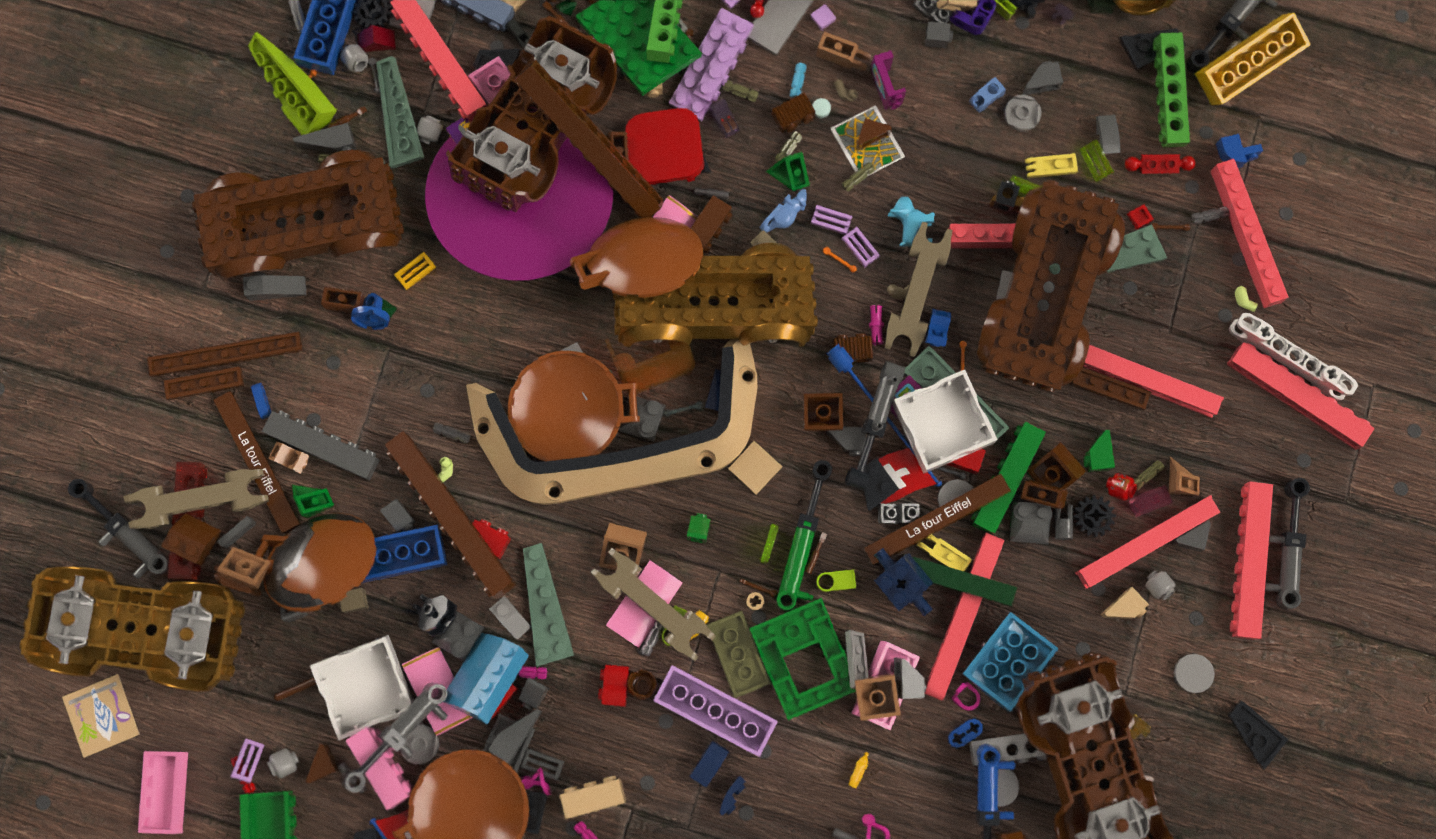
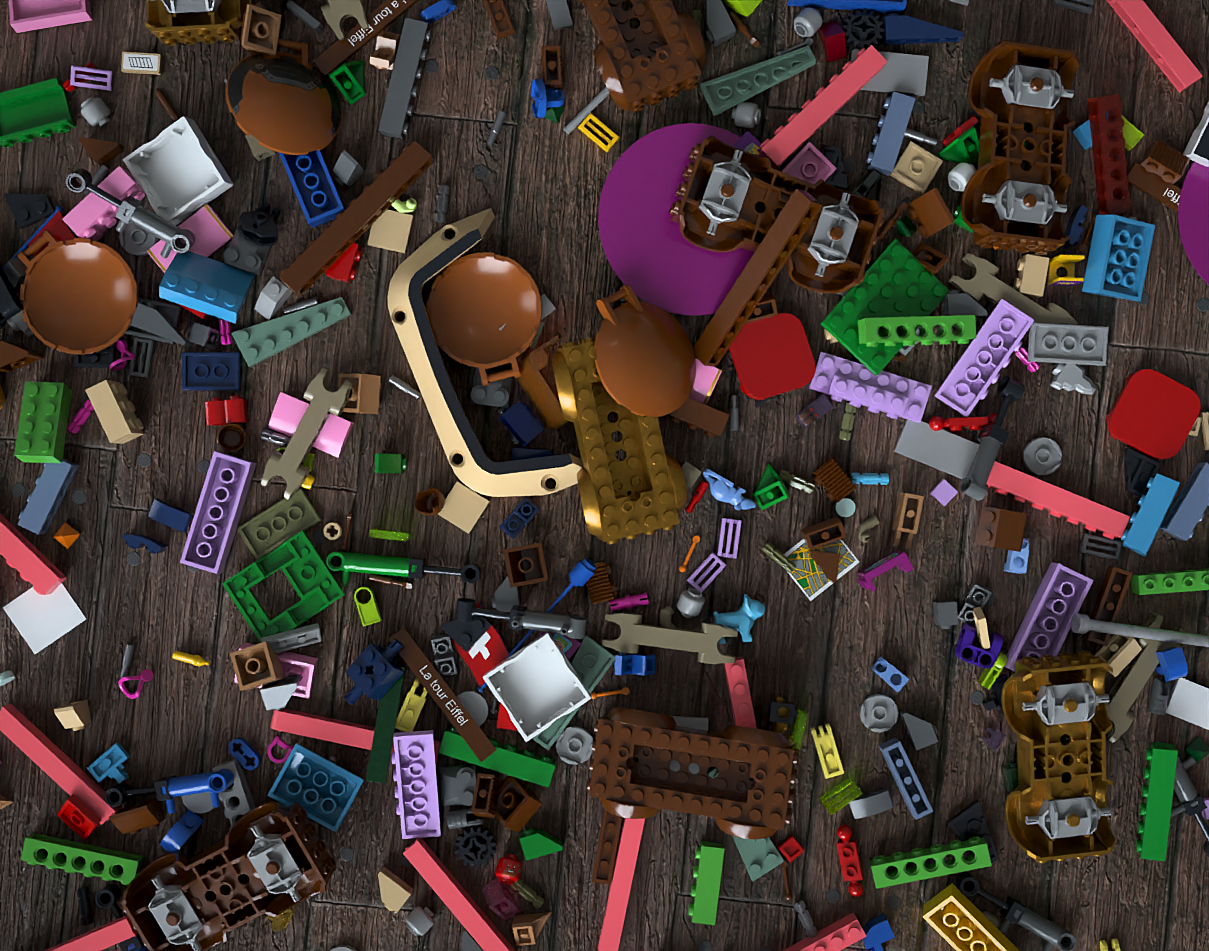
camera: 85 degrees right, 10 degrees up
(244, 708) = (141, 63): none -> tile
(388, 366) = (496, 127): none -> flat silver pin
(389, 275) = (585, 112): none -> light grey bar
(468, 487) = (391, 231): none -> tan tile
(523, 591) = (301, 305): none -> flat silver pin
(570, 695) = (211, 371): none -> dark blue tile
(620, 508) = (404, 386): none -> flat silver pin
(683, 393) = (522, 423): none -> clear blue brick
(743, 497) = (429, 501): none -> reddish brown hair
(775, 415) = (519, 518): none -> dark blue slope
(780, 237) = (697, 496): none -> red pin
(842, 130) = (823, 533): none -> reddish brown brick
(887, 265) = (690, 602): none -> light grey head
(1008, 402) = (574, 745): none -> light grey tile
(1022, 559) = (416, 784): none -> lavender plate
(1035, 811) = (181, 832): none -> blue brick
(1088, 97) = (905, 778): none -> sand blue brick
(1162, 299) = (707, 882): none -> bright green brick

